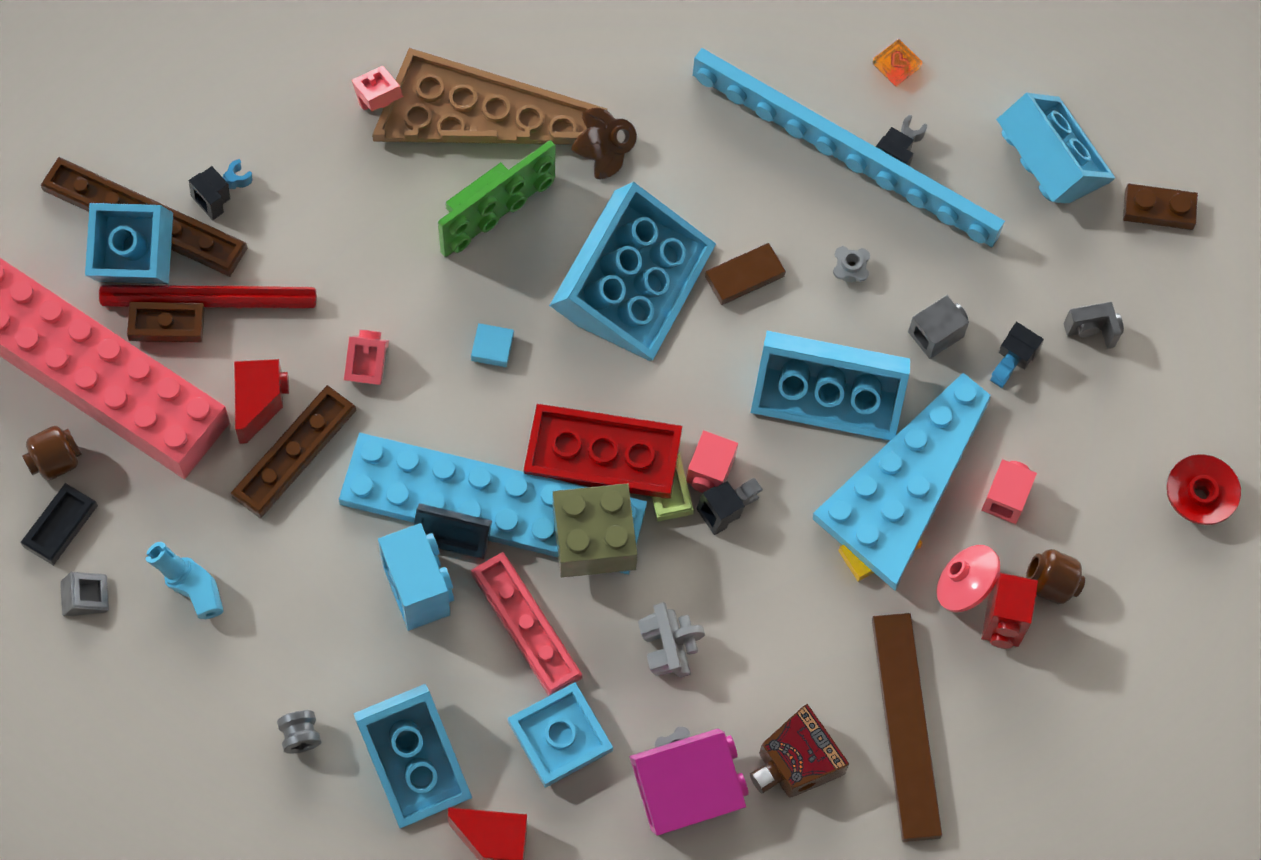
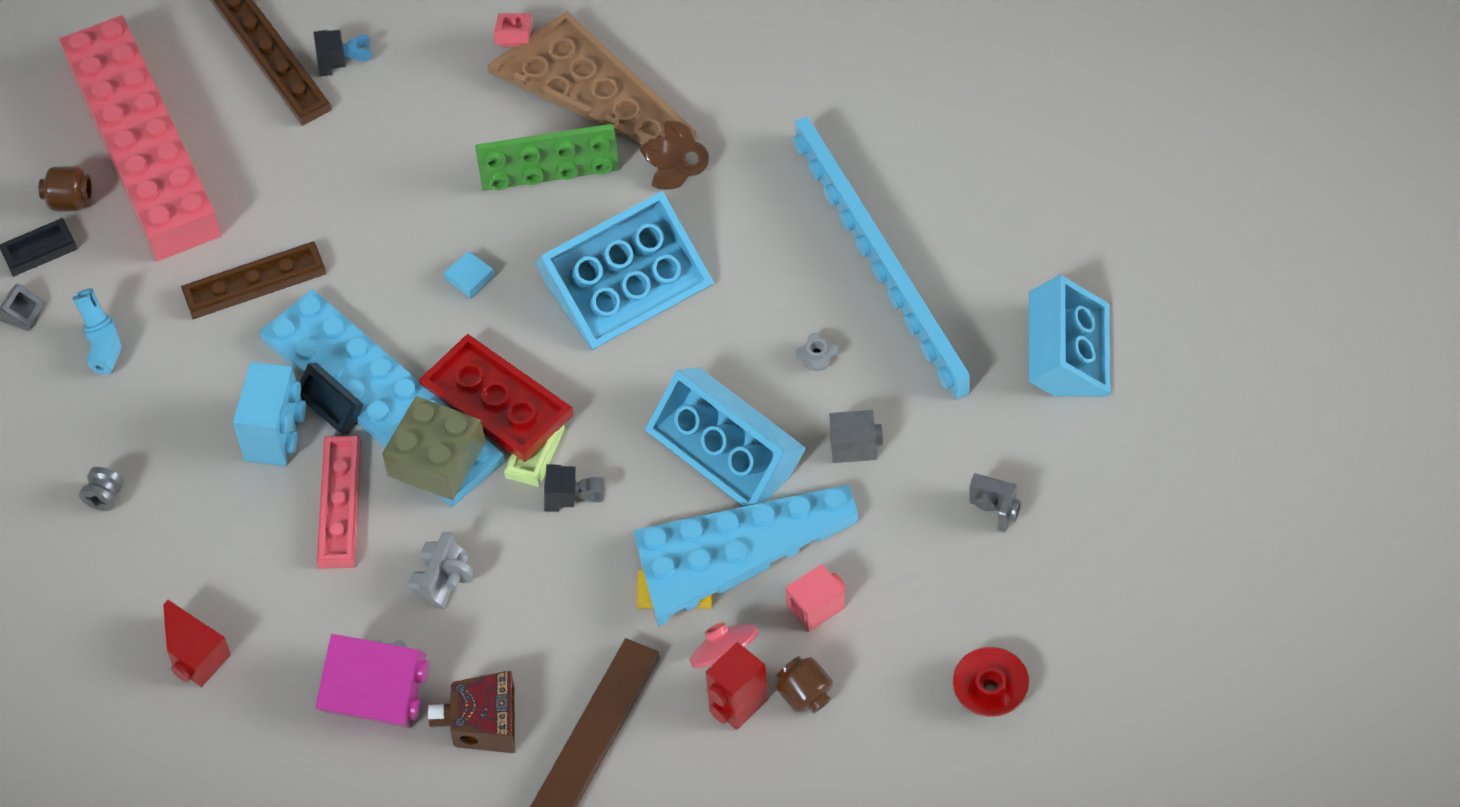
camera: 40 degrees right, 10 degrees down
(129, 243) = (232, 58): medium azure brick -> none
(165, 322) = (224, 134): reddish brown plate -> none
(211, 295) = (272, 131): red axle -> none
(257, 395) = (251, 222): red slope -> none
(366, 357) = (358, 233): coral bracket -> none
(412, 755) = (174, 550): medium azure slope -> none
(560, 734) = (301, 597): medium azure plate -> none
(711, 462) = (579, 447): coral brick -> none
(745, 273) = (720, 317): reddish brown tile -> none
(897, 62) = (981, 210): clear orange tile -> none
(899, 143) = (926, 275): black piece -> none
(1018, 349) = (911, 487): black piece -> none
(1160, 206) = (1133, 435): reddish brown plate -> none

